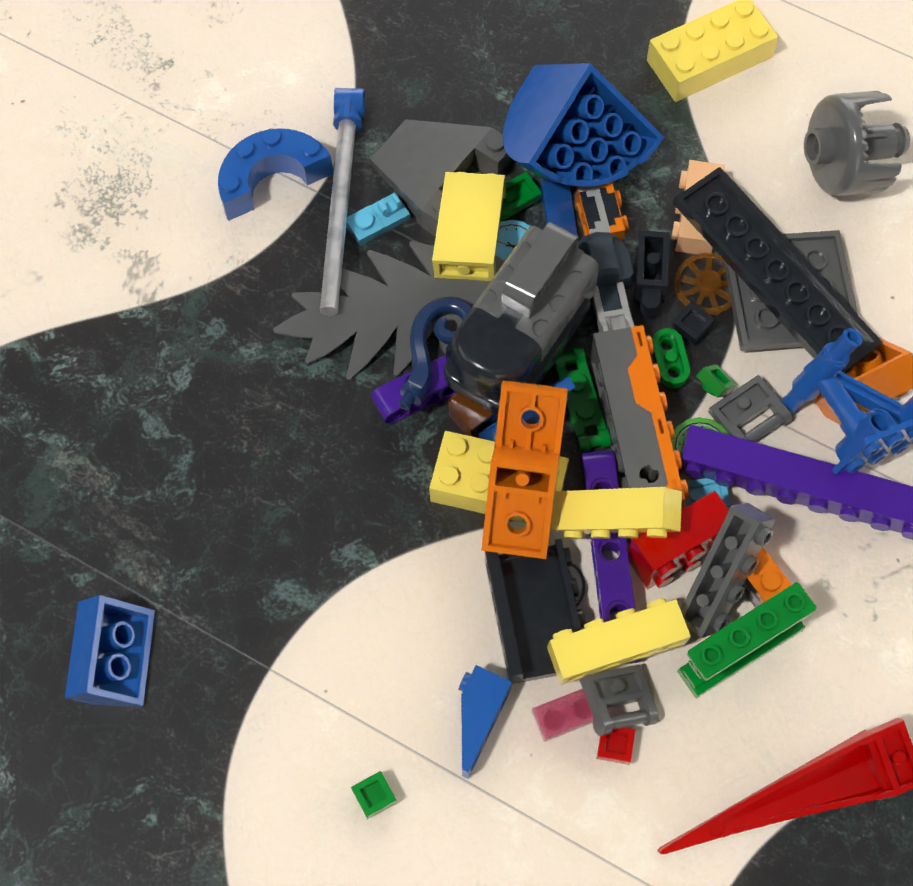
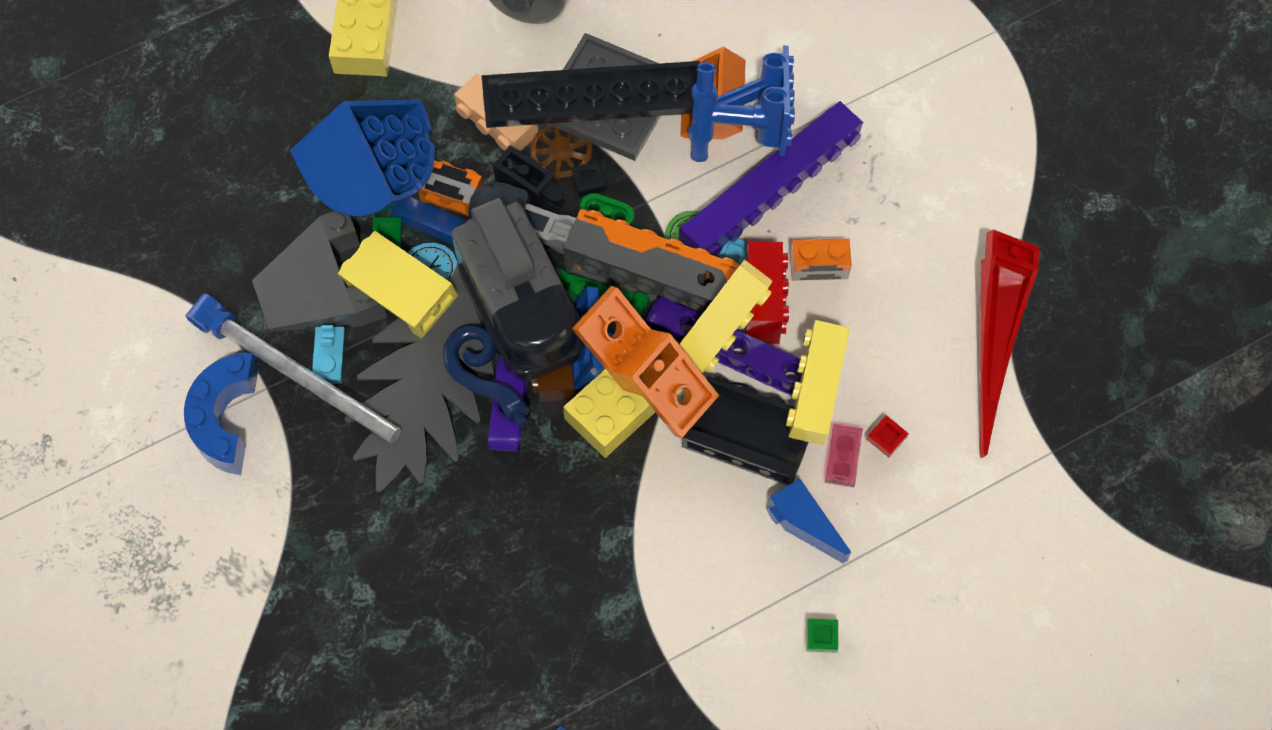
camera: 60 degrees left, 0 degrees up
(615, 689) = (849, 409): dark grey plate -> none
(716, 381) = (648, 192): green plate -> none
(726, 569) = (811, 271): dark grey brick -> none
(745, 405) = (680, 185): dark grey plate -> none
(746, 639) = (871, 295): green fence -> none

